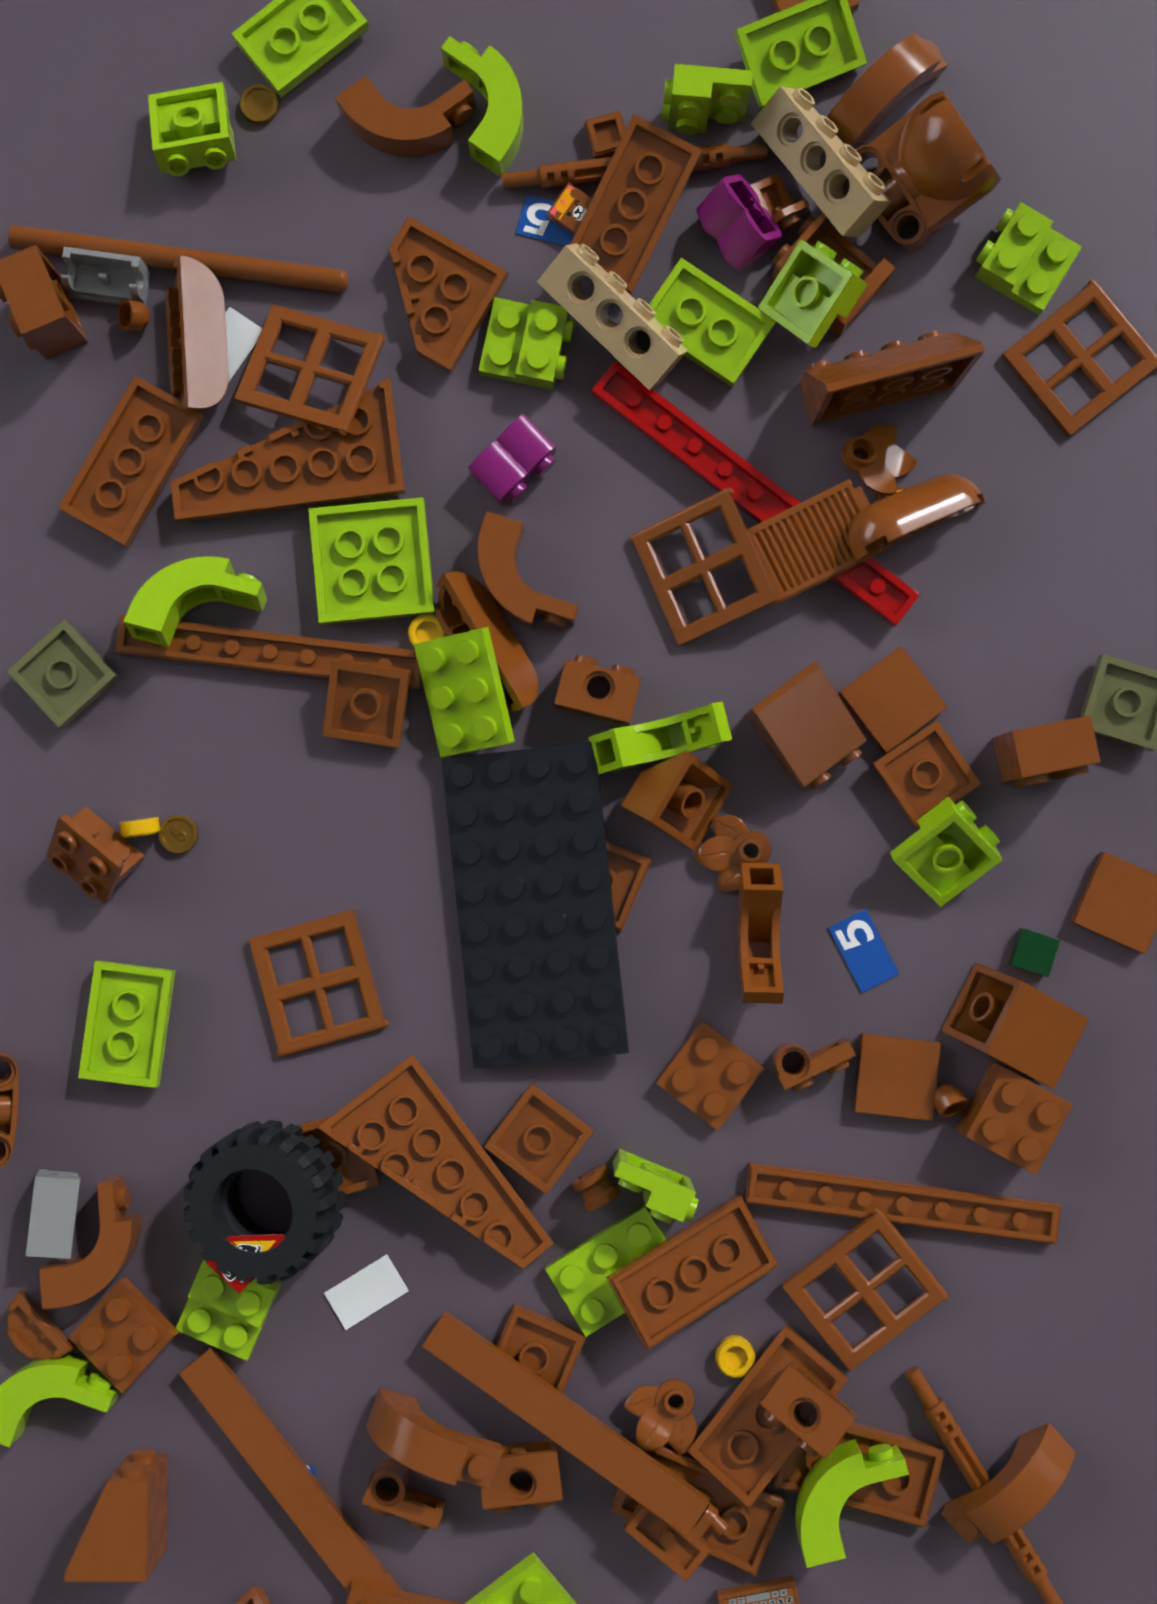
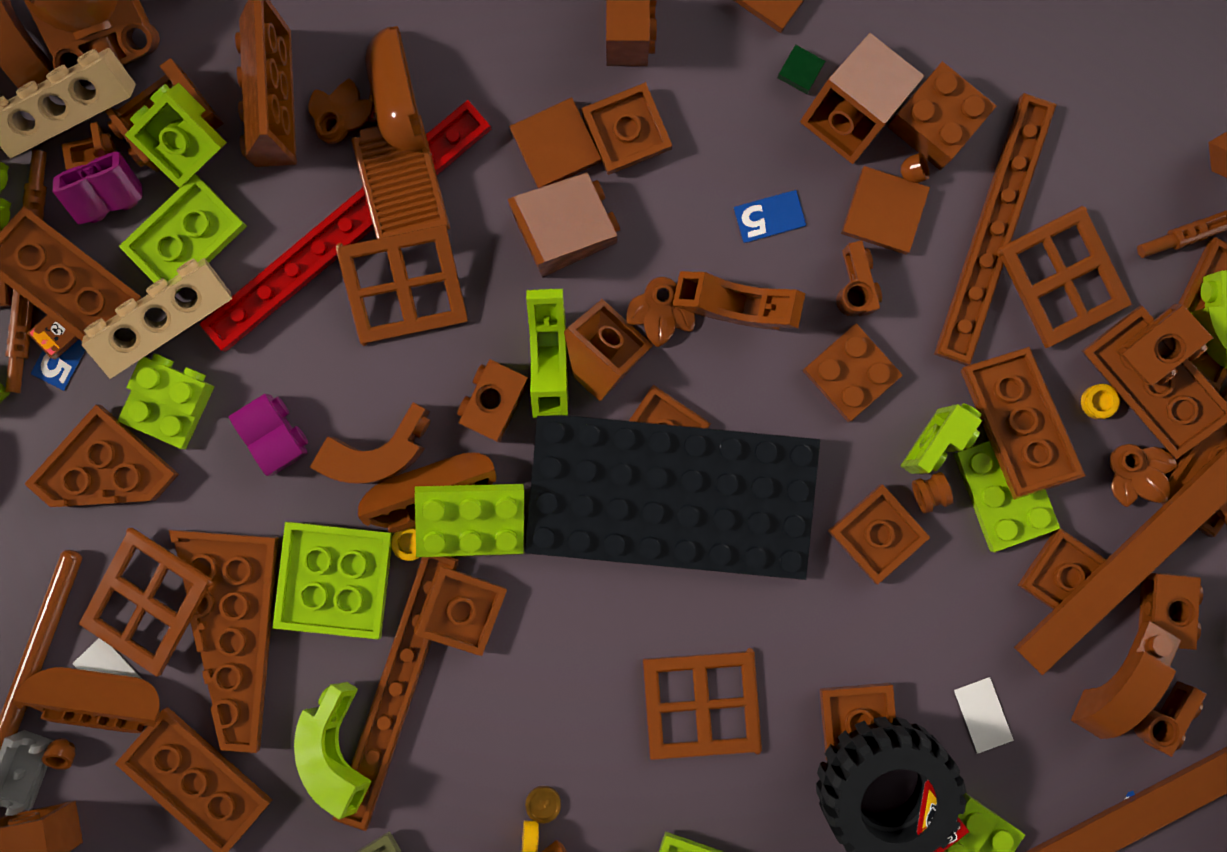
camera: 80 degrees left, 0 degrees up
(424, 1146) = (867, 637): dark orange wing -> none
(947, 851) = (699, 122): lime plate -> none

